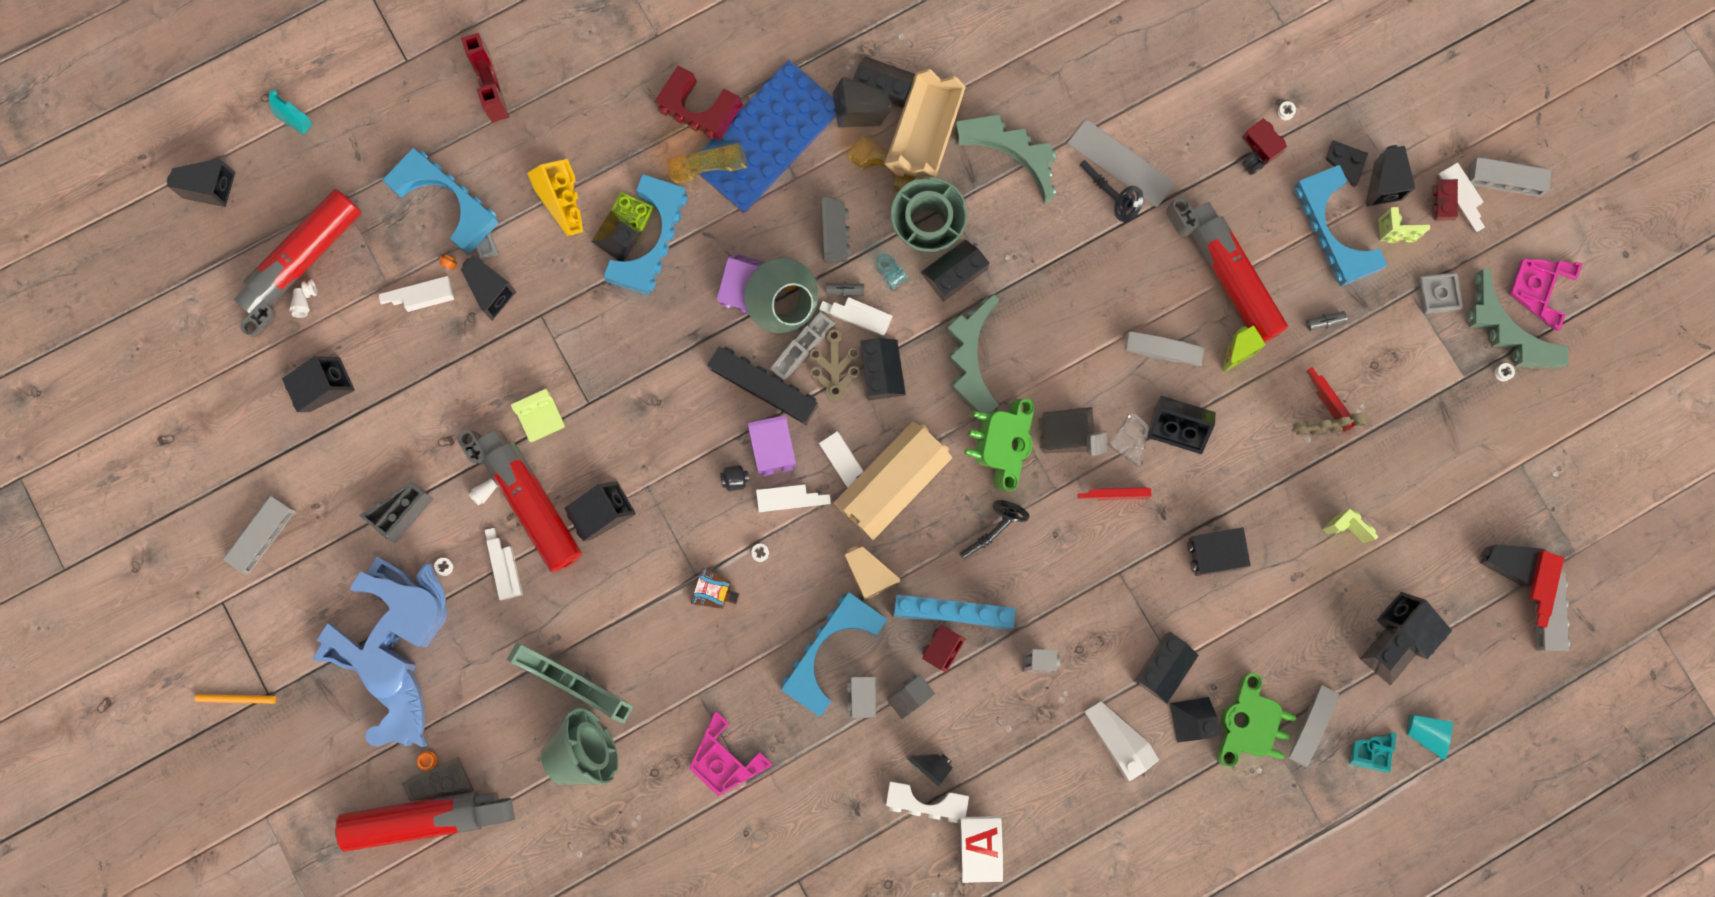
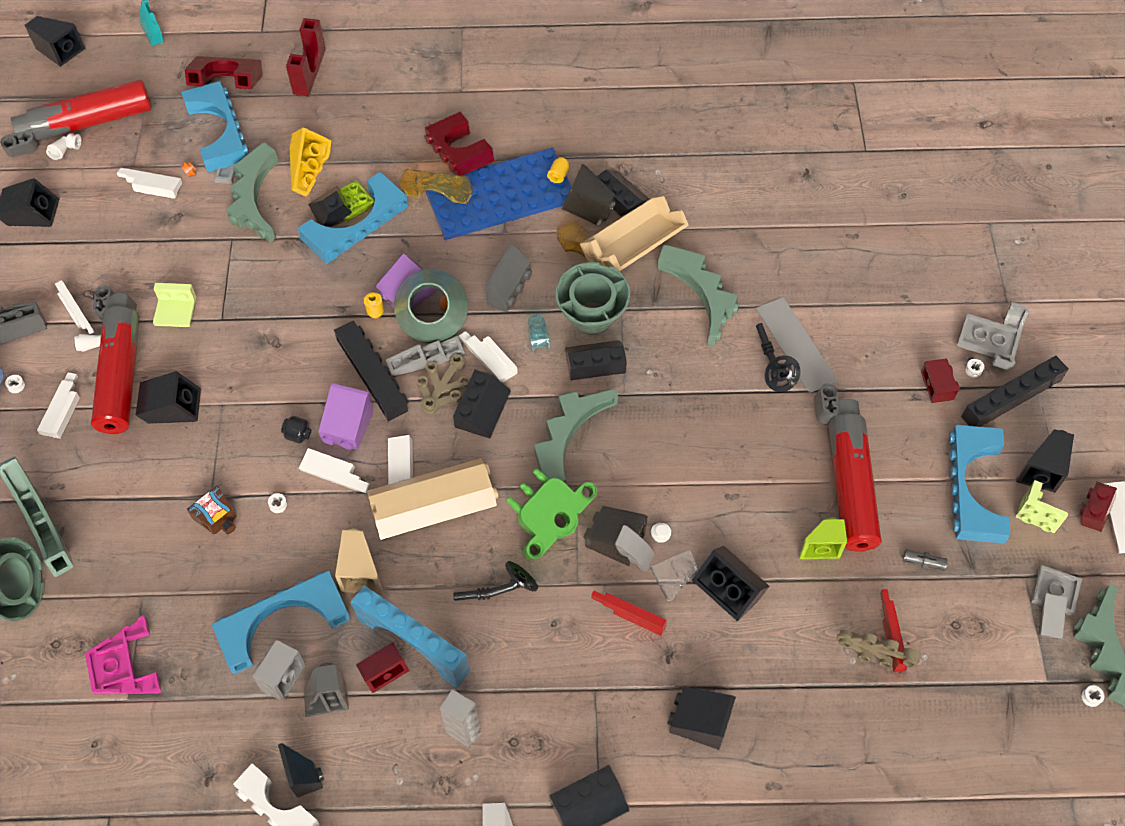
camera: 30 degrees right, 20 degrees down
(387, 135) = (245, 71): none -> dark red arch
(444, 466) = (72, 307): none -> white piece
(487, 286) = (201, 196): black slope -> none
(513, 235) = (250, 174): none -> sand green arch
(727, 324) = (374, 305): none -> yellow brick
(813, 87) = (558, 170): none -> yellow brick
(845, 289) = (490, 330): dark grey pin -> none
(1101, 408) = (660, 532): none -> white plate
(1164, 348) = (750, 508): light grey slope -> none
(1253, 164) = (919, 395): black wheel -> none
(1291, 71) = (995, 338): none -> light grey piece
(1332, 120) = (1015, 392): none -> black brick
(1349, 158) = (1016, 434): black wing -> none
(1351, 520) = (856, 751): yellowish green bracket -> none
(1448, 319) = (1053, 616): none -> light grey tile

